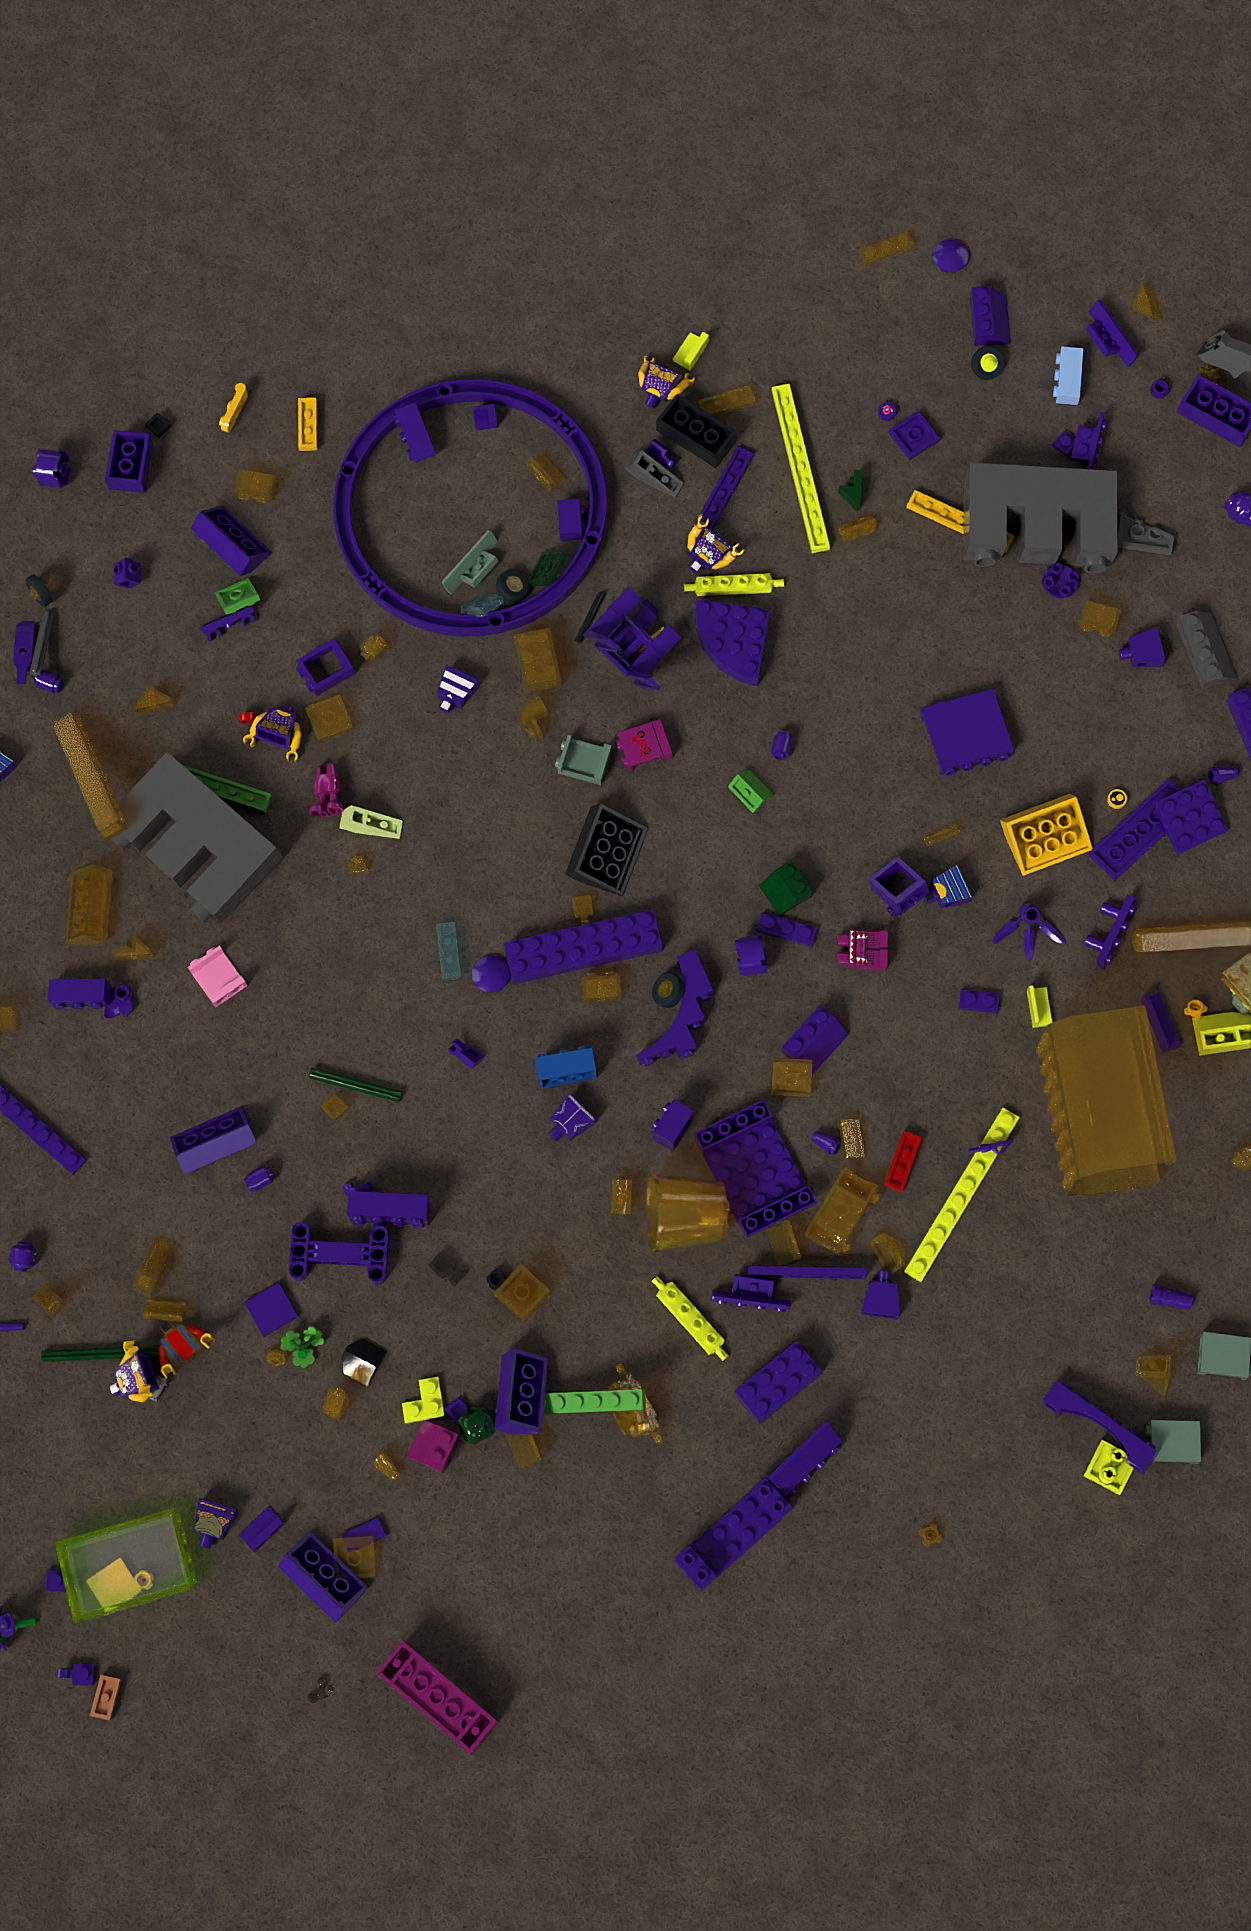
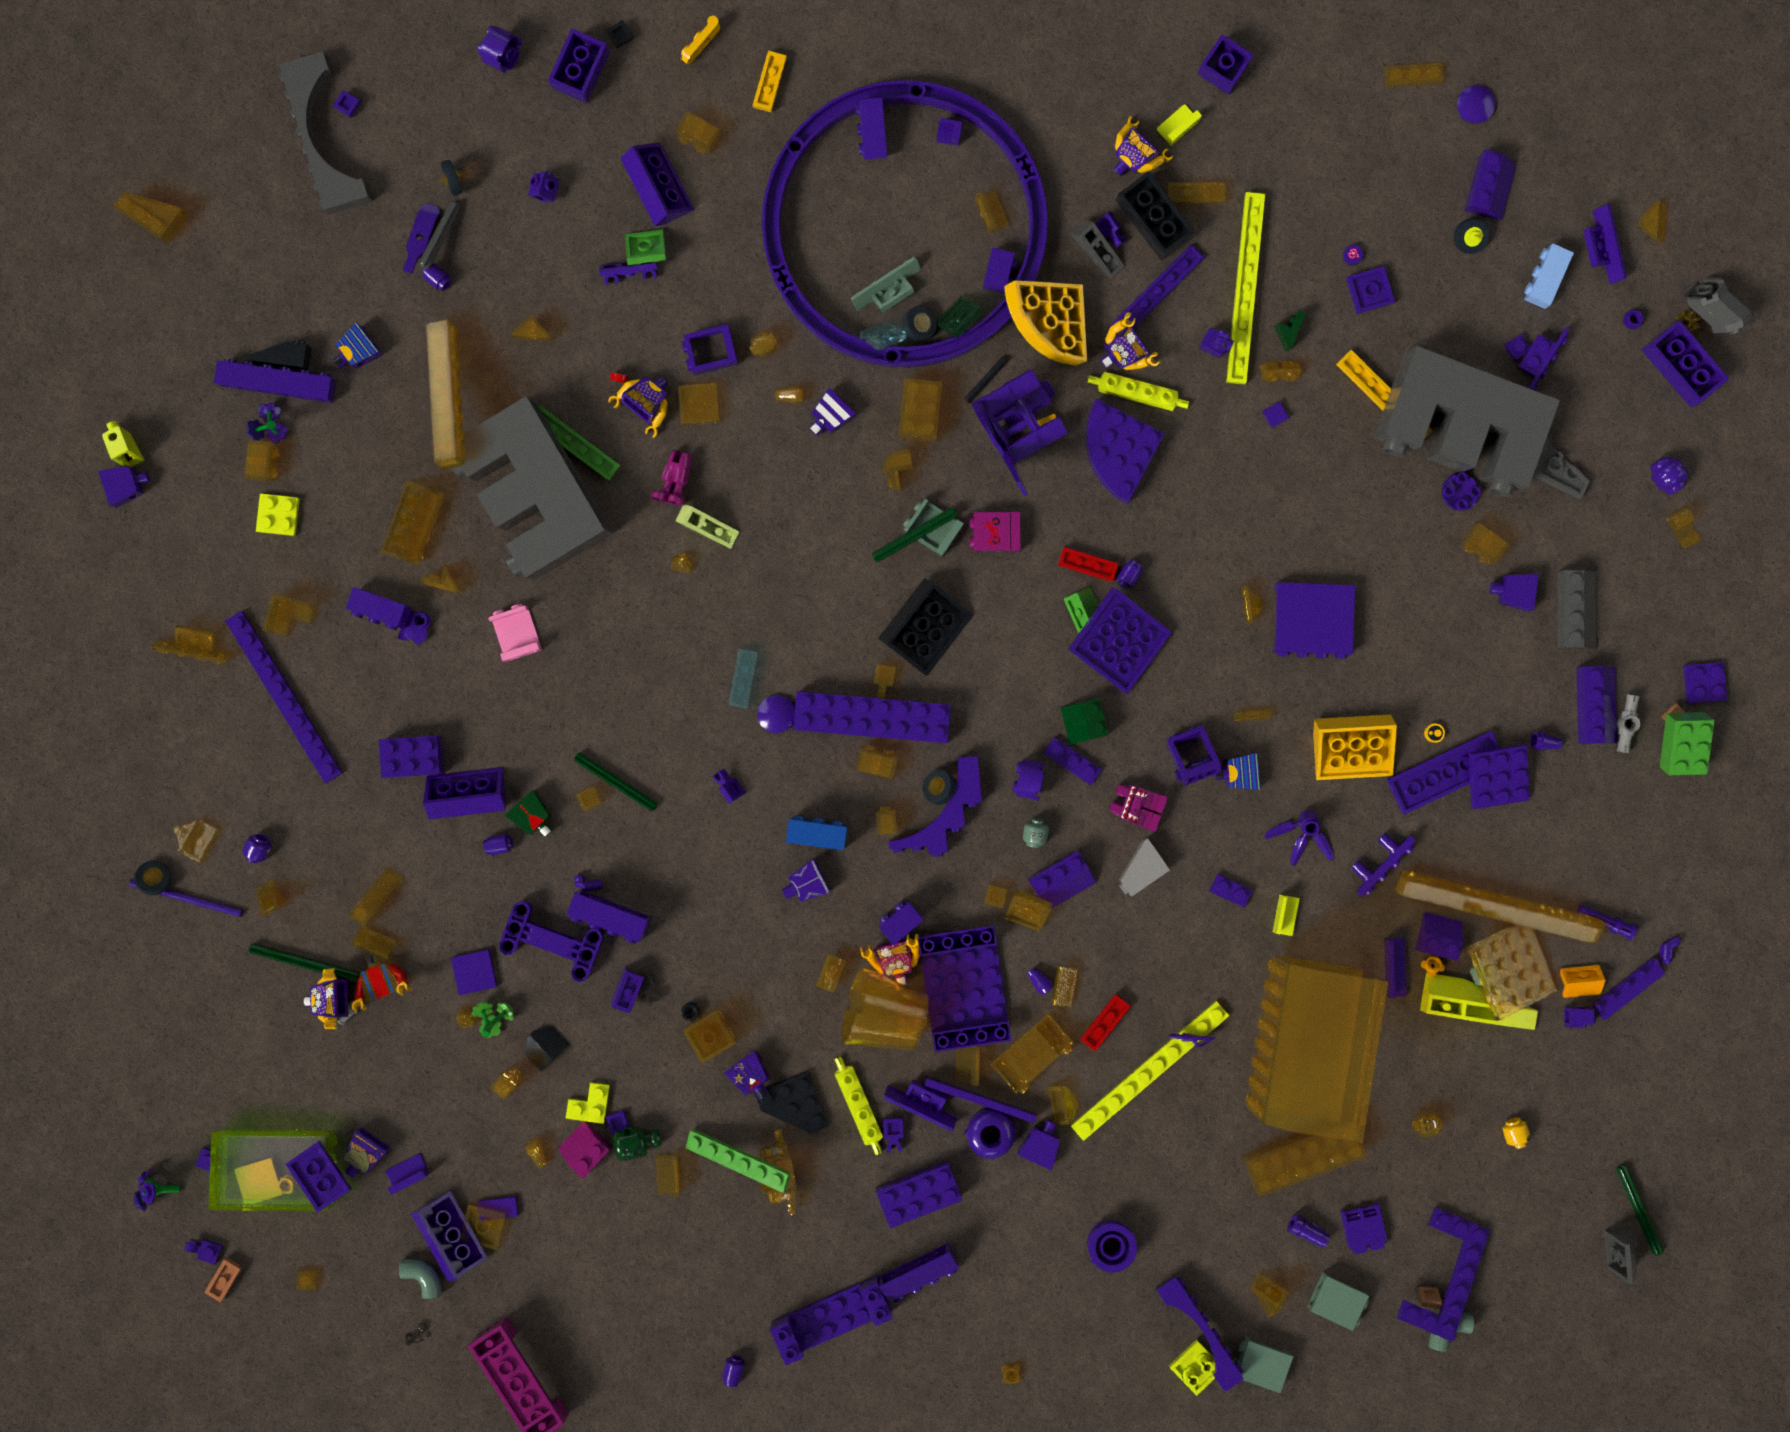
camera: 15 degrees right, 15 degrees up
(150, 1121) = (411, 756): none -> dark purple brick
(175, 1551) = (318, 1176): none -> dark purple plate
(191, 1671) = (307, 1279): none -> clear yellow plate
(282, 1140) = (531, 814): none -> dark green torso
(308, 1624) = (424, 1274): none -> sand green cylinder
(412, 684) = (790, 394): none -> clear yellow cone
(427, 1276) = (627, 990): none -> dark purple panel
(521, 1393) = (679, 1130): dark purple slope -> none
(568, 771) = (914, 535): none -> dark green axle
(573, 1320) = (750, 1075): none -> dark purple torso
(626, 1336) = (795, 1103): none -> black plate
(628, 1038) = (886, 821): none -> clear yellow brick
(630, 543) = (1050, 318): none -> yellow brick
(651, 1621) = (733, 1371): none -> dark purple brick
(680, 1160) = (894, 959): none -> torso
(714, 287) = (1225, 64): none -> dark purple brick
(732, 1331) = (893, 1131): none -> dark purple plate
(740, 748) = (1087, 564): none -> red plate
(756, 1076) = (995, 896): none -> clear yellow plate
(774, 1004) = (1035, 833): none -> sand green head
(790, 520) = (1216, 342): none -> dark purple brick
(792, 804) = (1119, 640): none -> dark purple plate
(822, 1317) = (992, 1149): none -> dark purple piece
(866, 567) = (1275, 414): none -> dark purple tile
(888, 1005) = (1142, 869): none -> light grey slope
(904, 736) = (1252, 604): none -> clear yellow slope
(991, 1356) = (1114, 1261): none -> dark purple piece
(1139, 1226) = (1298, 1160): none -> clear yellow brick
(1192, 981) = (1440, 936): none -> dark purple slope
(1223, 1278) = (1364, 1228): none -> dark purple plate

